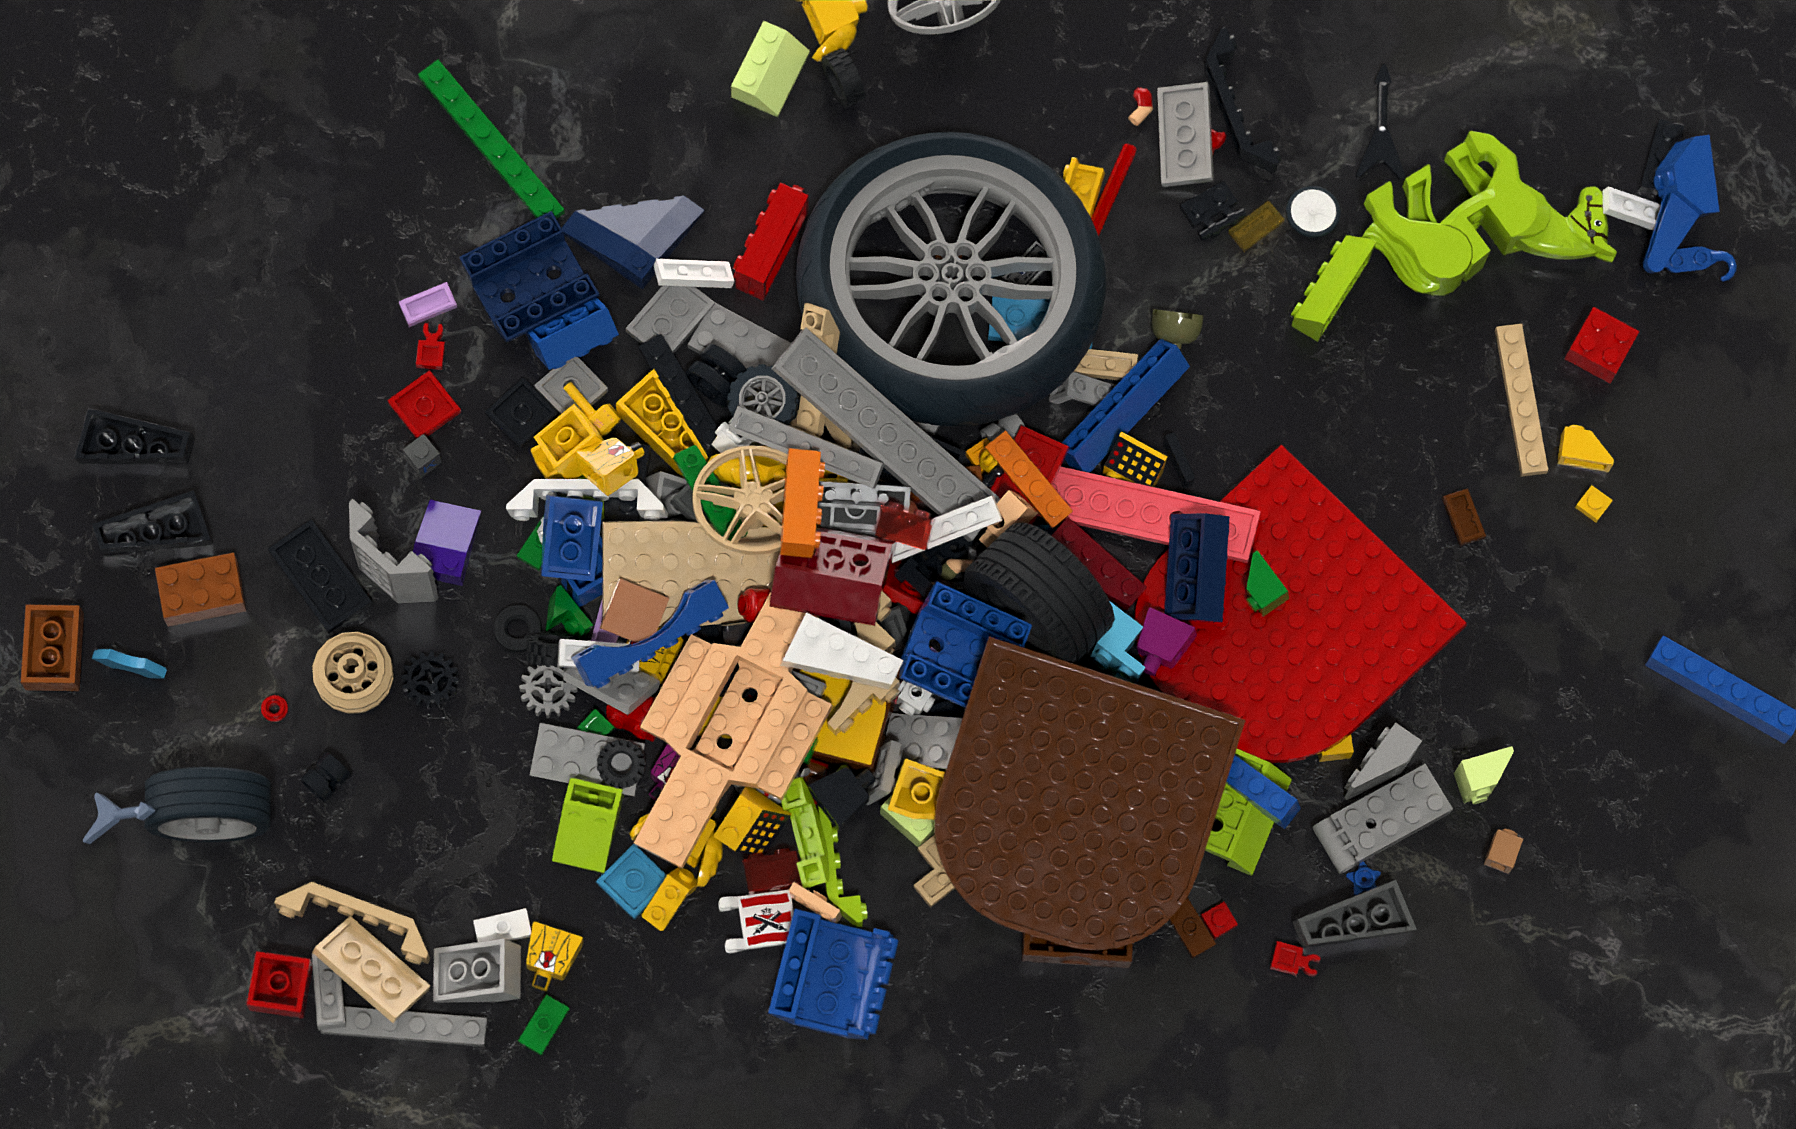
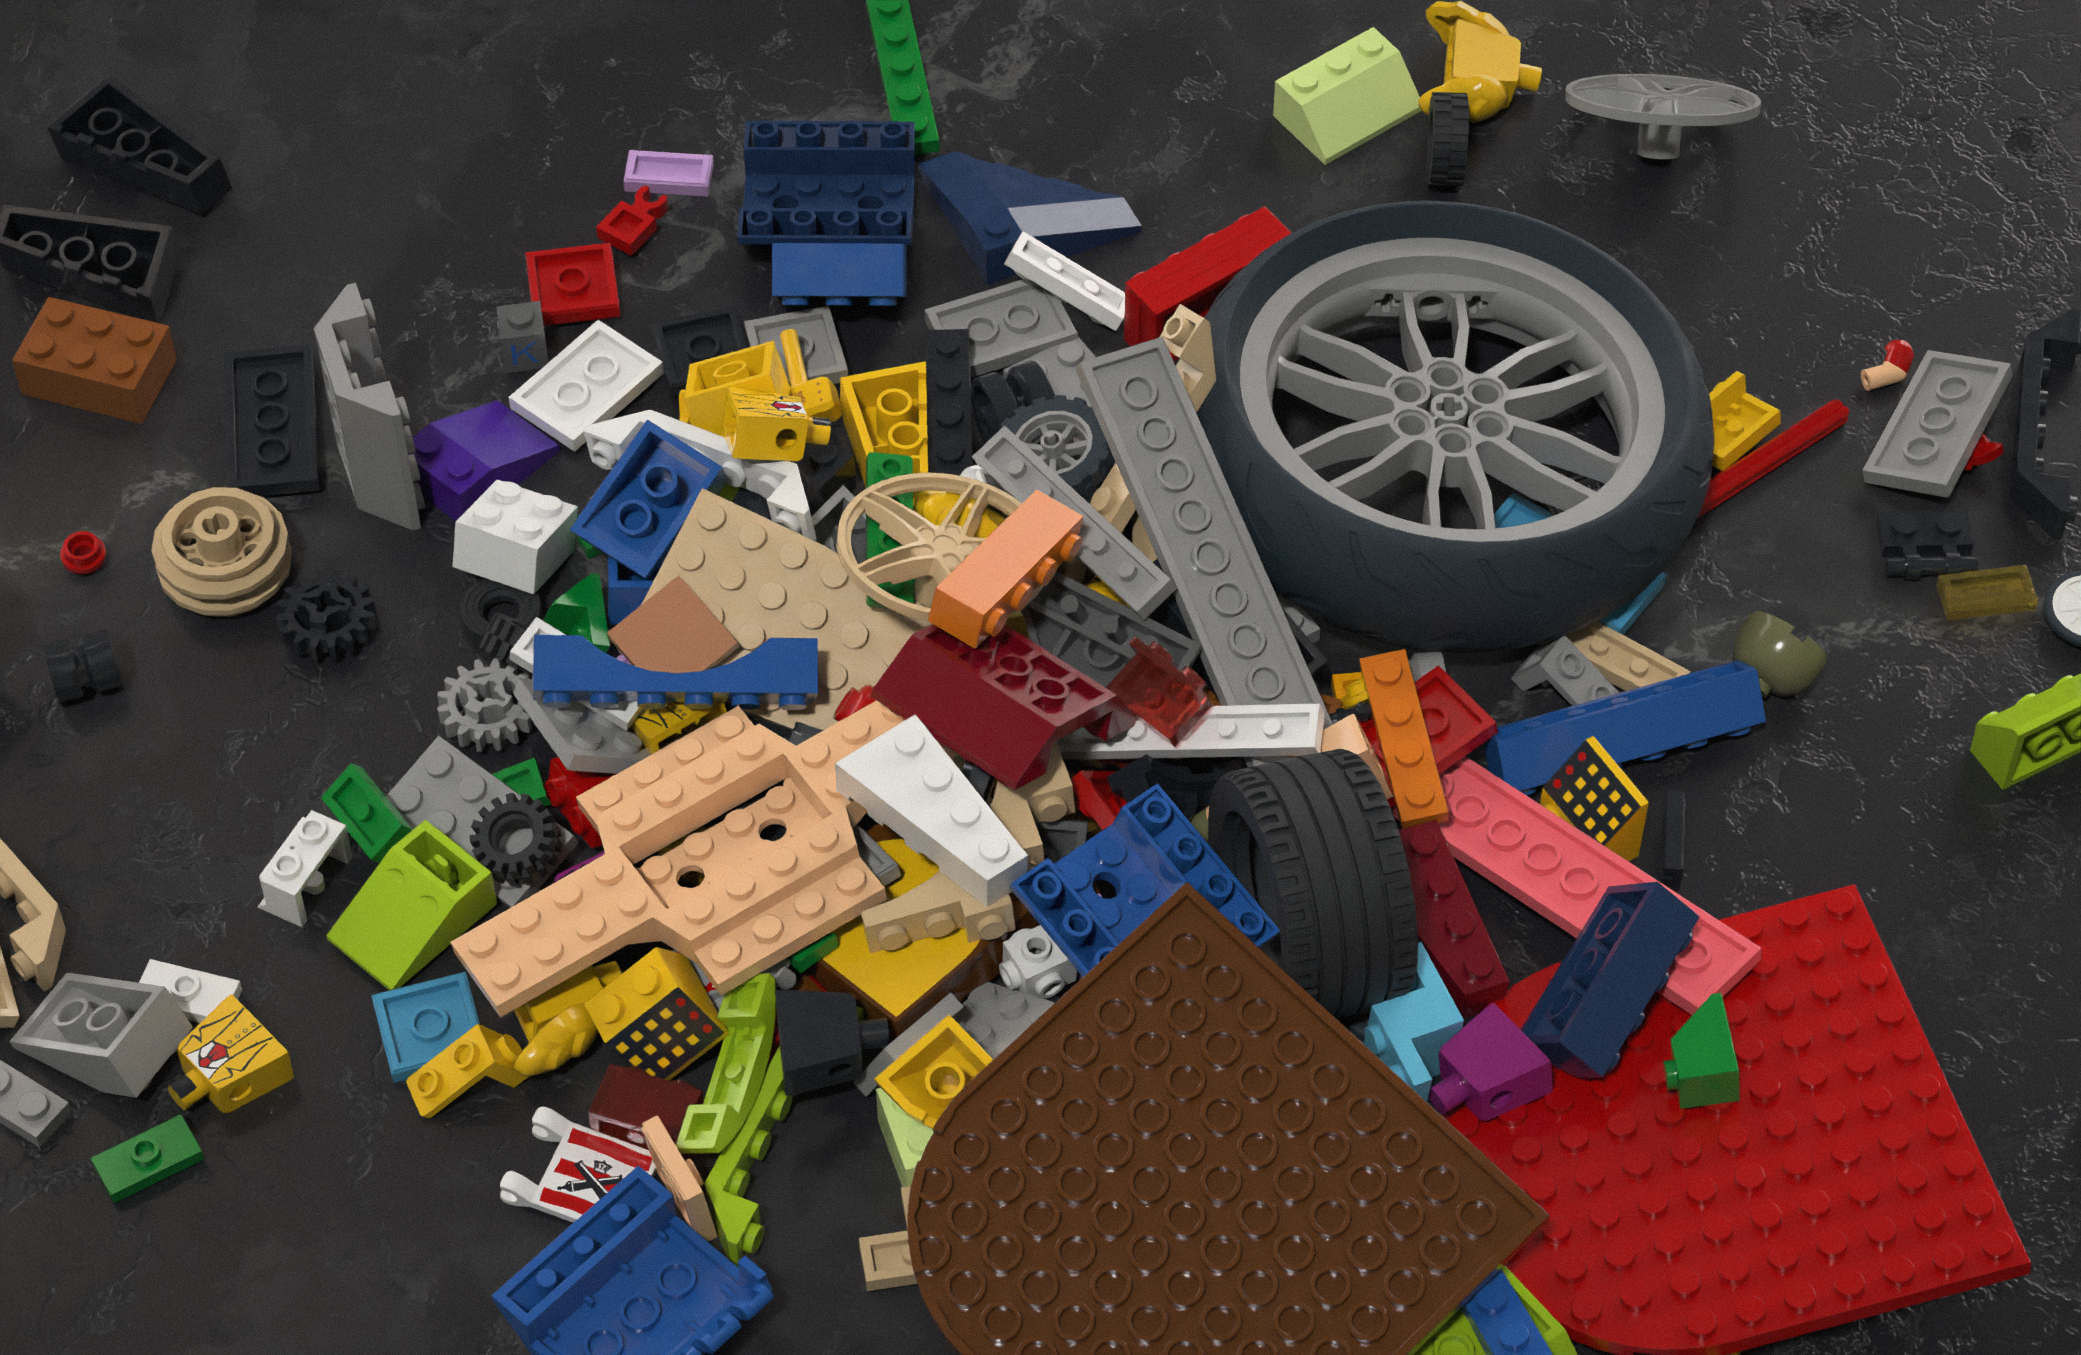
camera: 35 degrees right, 20 degrees down
(473, 467) = (586, 384): none -> white plate
(502, 584) = (514, 536): none -> white brick
(516, 840) = (297, 864): none -> white window
(535, 787) = (365, 812): none -> green panel

